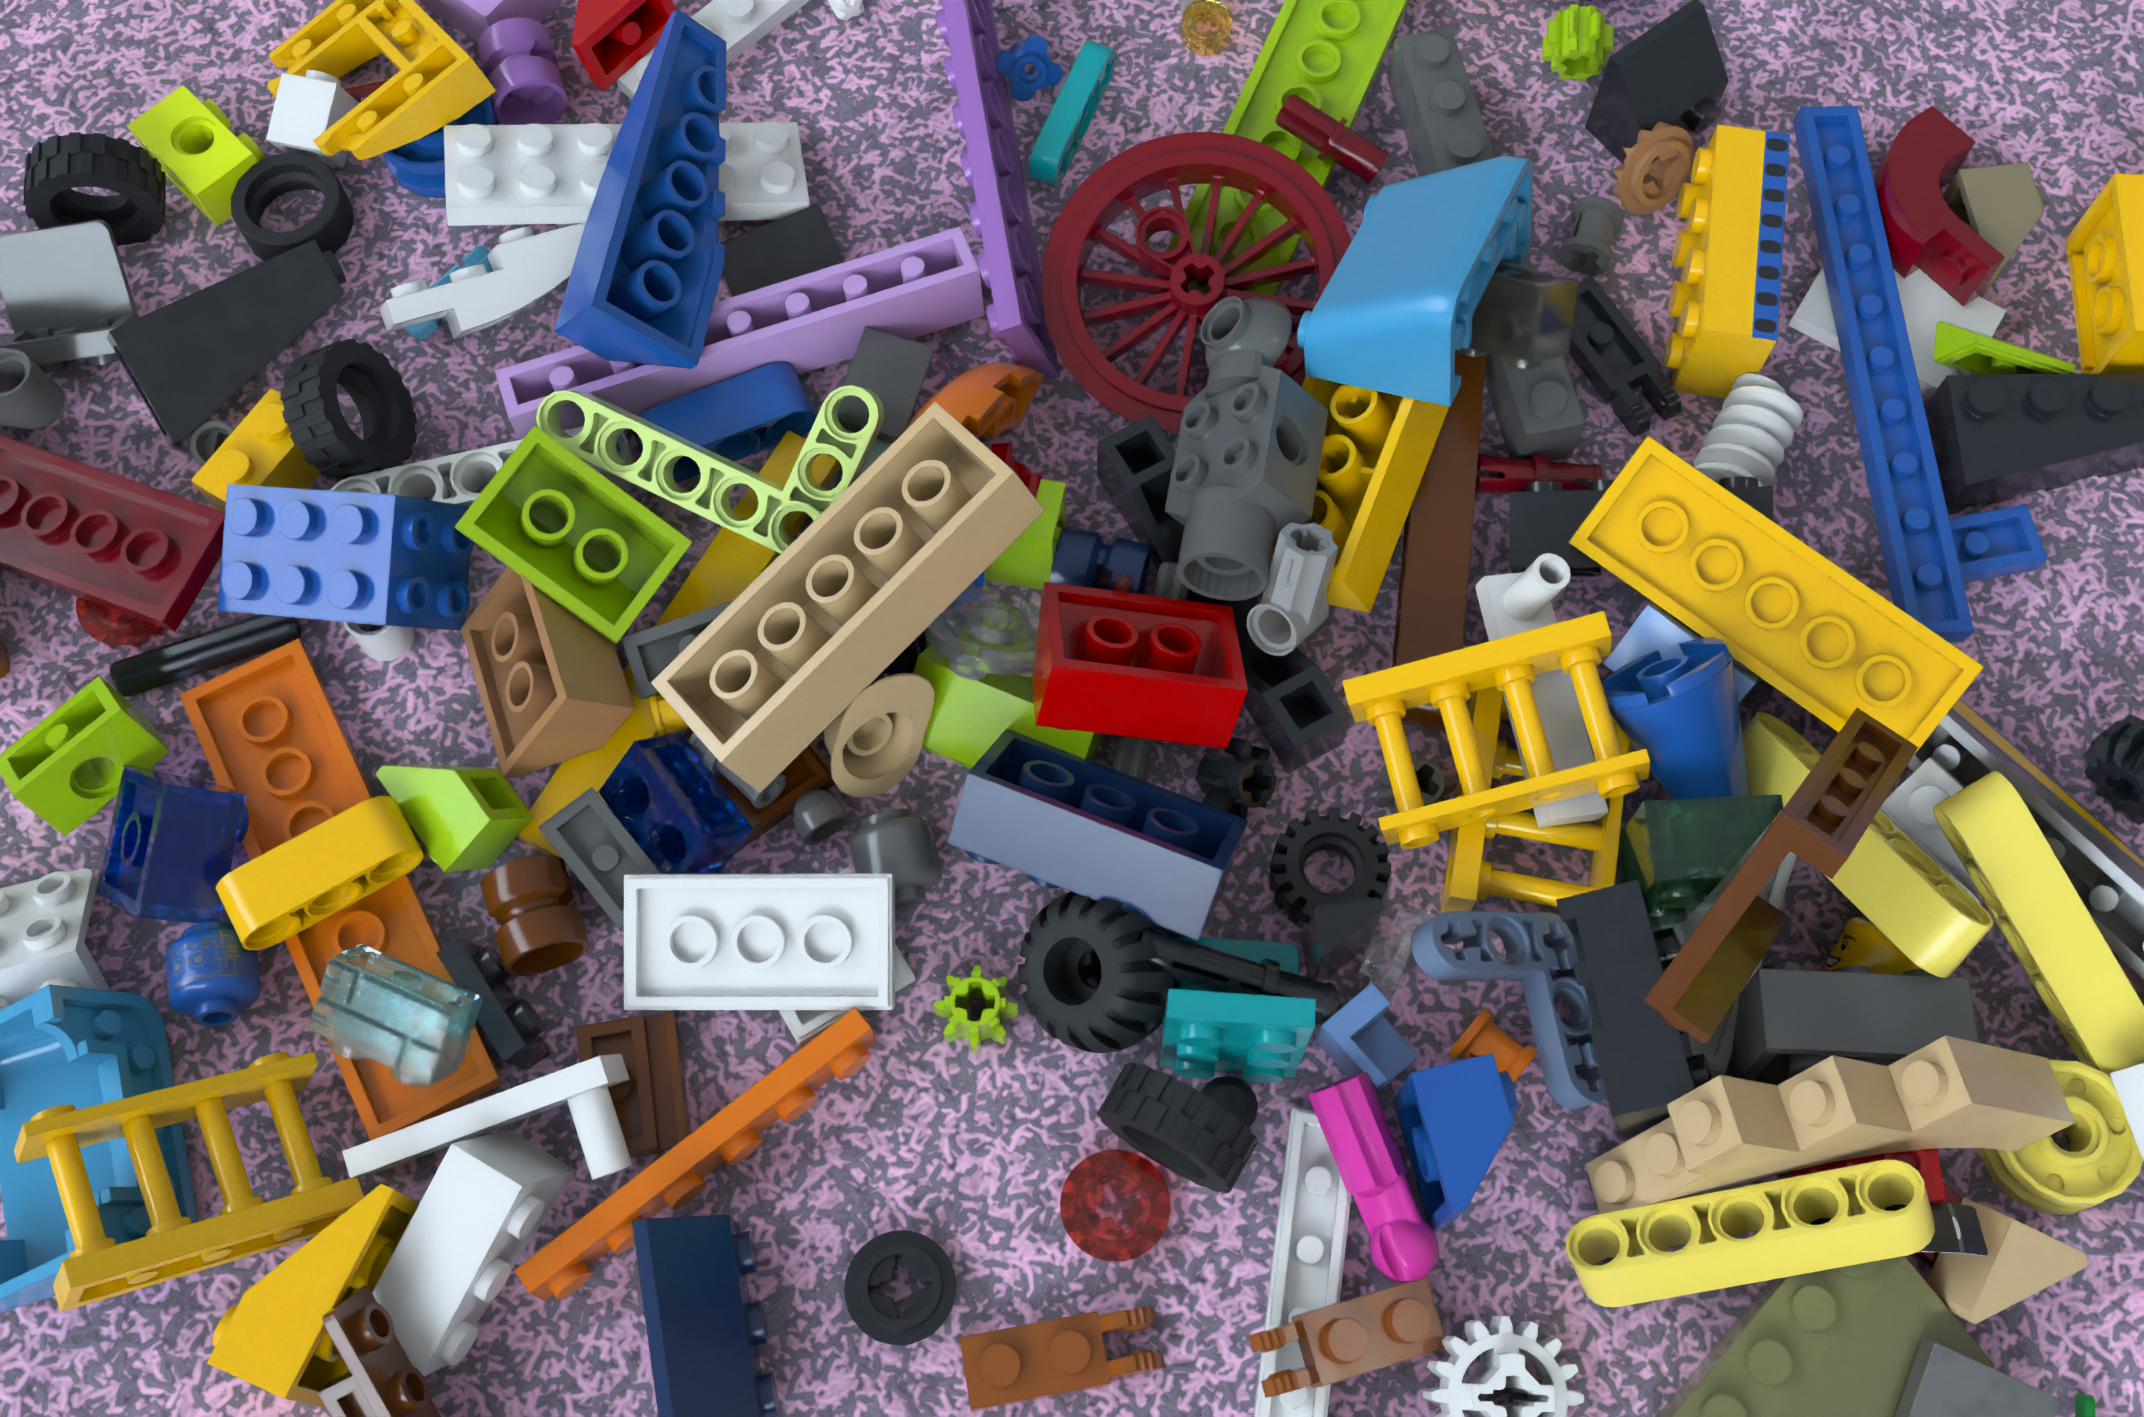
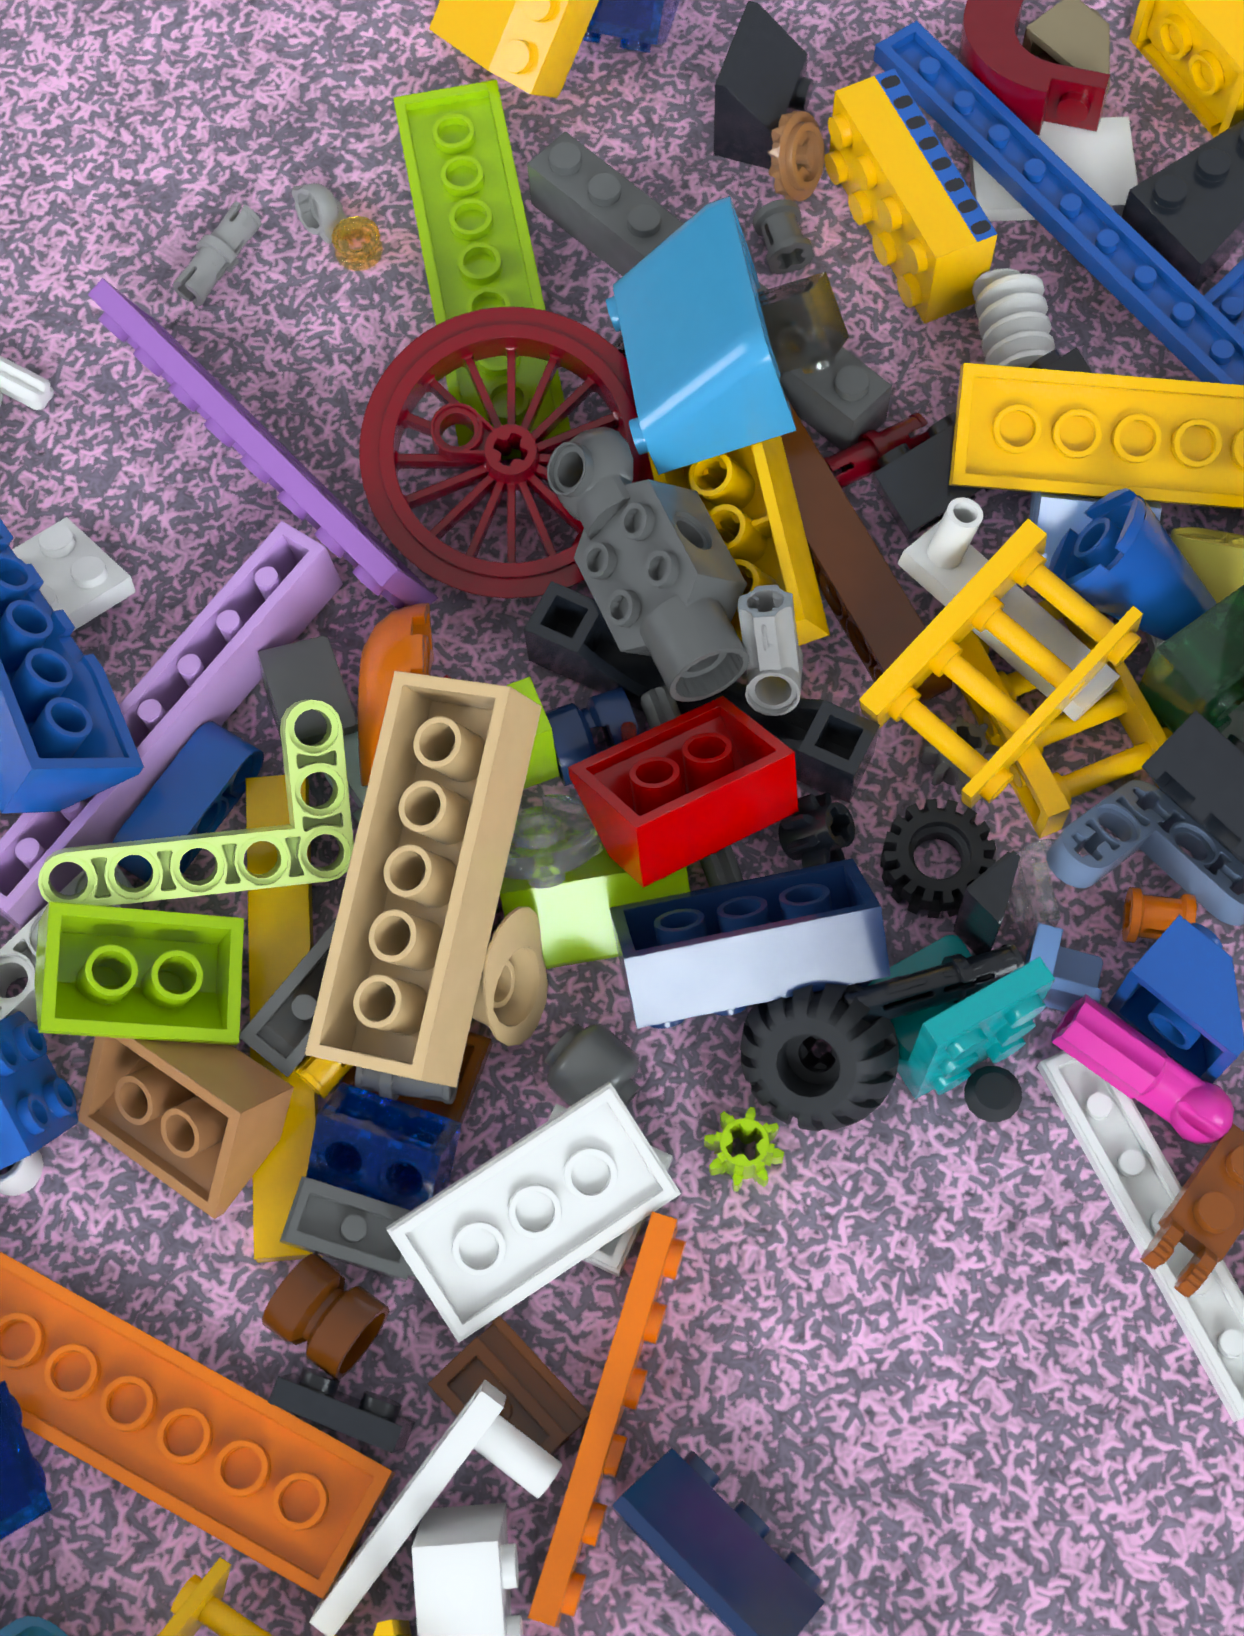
camera: 30 degrees left, 0 degrees up
(211, 974) = (76, 1553): blue head -> none
(319, 872) = (115, 1404): yellow beam -> none
(394, 1015) = (274, 1478): clear light blue brick -> none
(457, 811) = (192, 1272): lime slope -> none
(779, 251) = (137, 634): black slope -> none
(818, 816) = (500, 1078): dark grey hinge -> none
(876, 1266) = (845, 1379): black gear -> none
(1028, 51) = (220, 355): blue plate -> none
(1052, 1357) = (996, 1385): dark orange hinge -> none
(1072, 113) = (298, 375): teal beam -> none
(1130, 1176) = (991, 1226): clear red gear -> none
(1178, 1127) = (975, 1134): black tyre -> none
(1331, 138) = (531, 274): dark red axle -> none
(1578, 42) = (666, 89): lime gear -> none
(1618, 360) = (877, 322): black hinge -> none
(1989, 355) = (1146, 157): lime slope -> none

